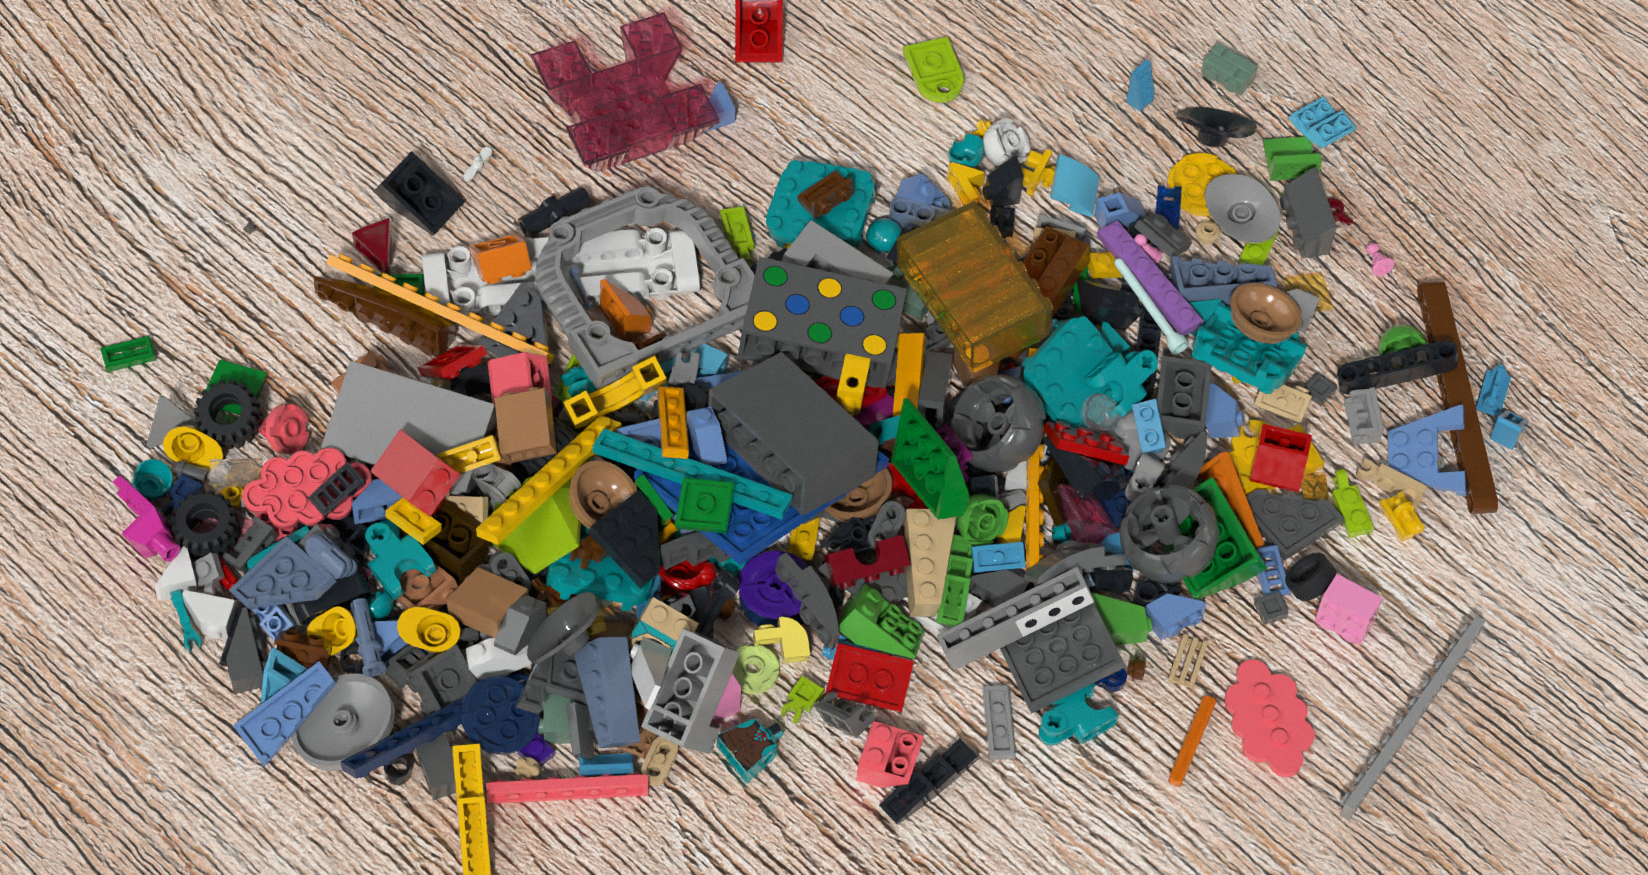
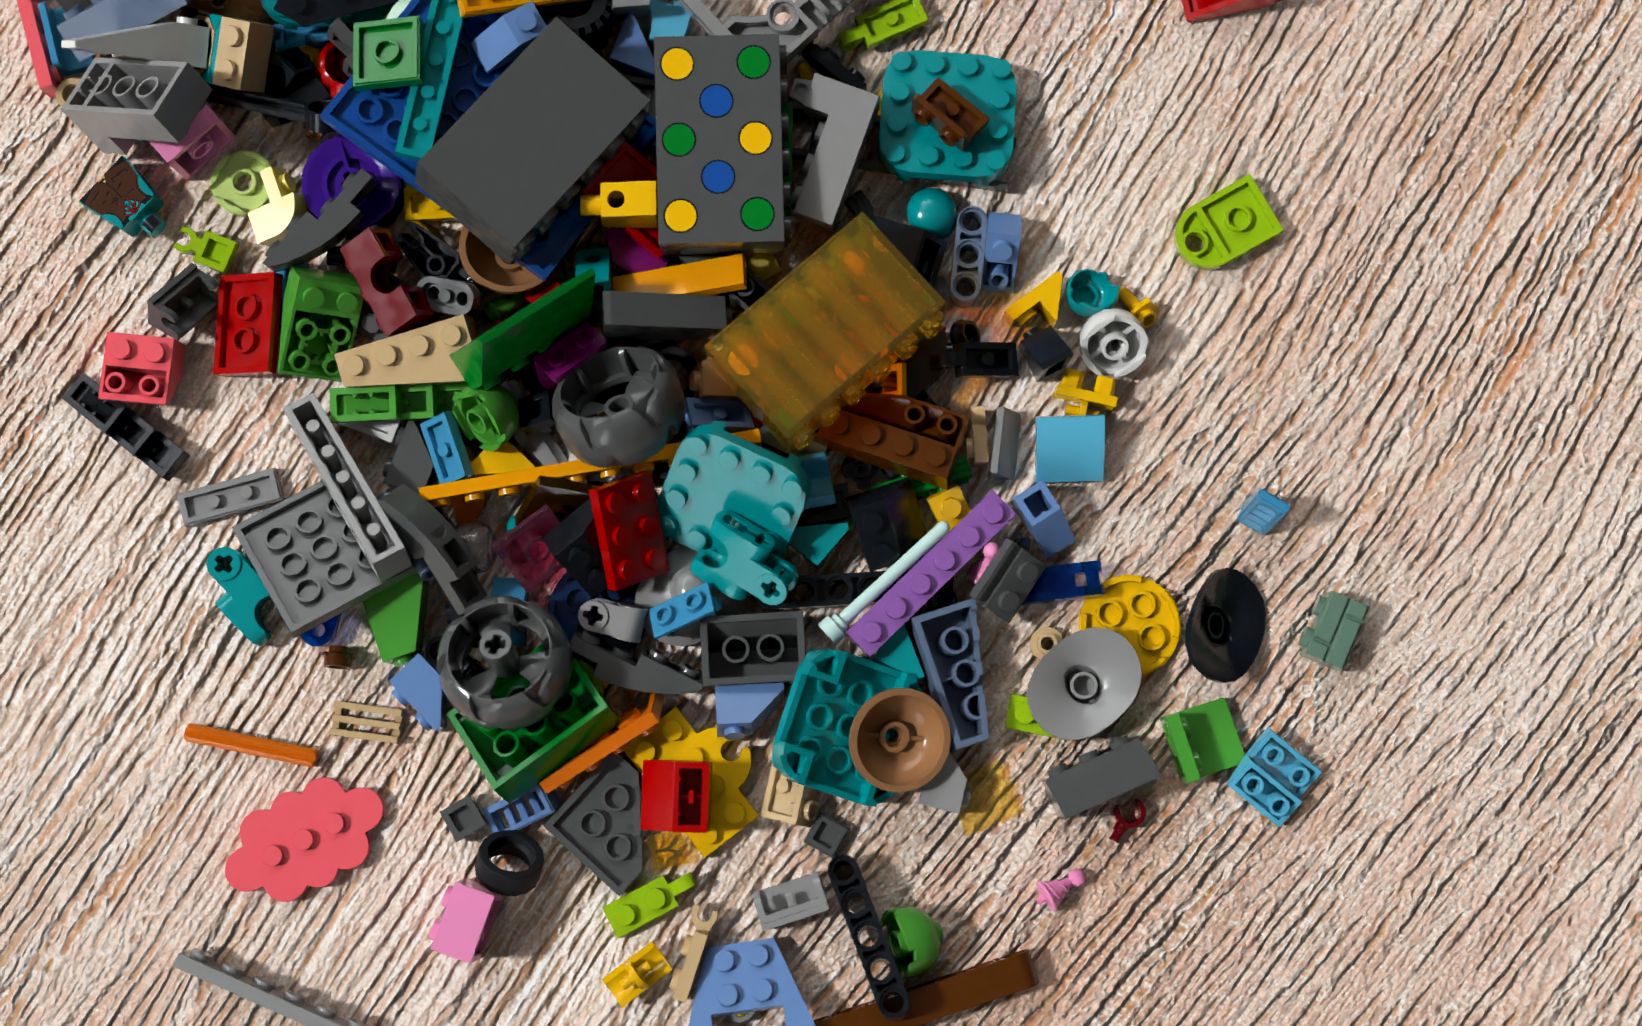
camera: 85 degrees right, 25 degrees up
(1099, 413) = (680, 541): clear hair -> none

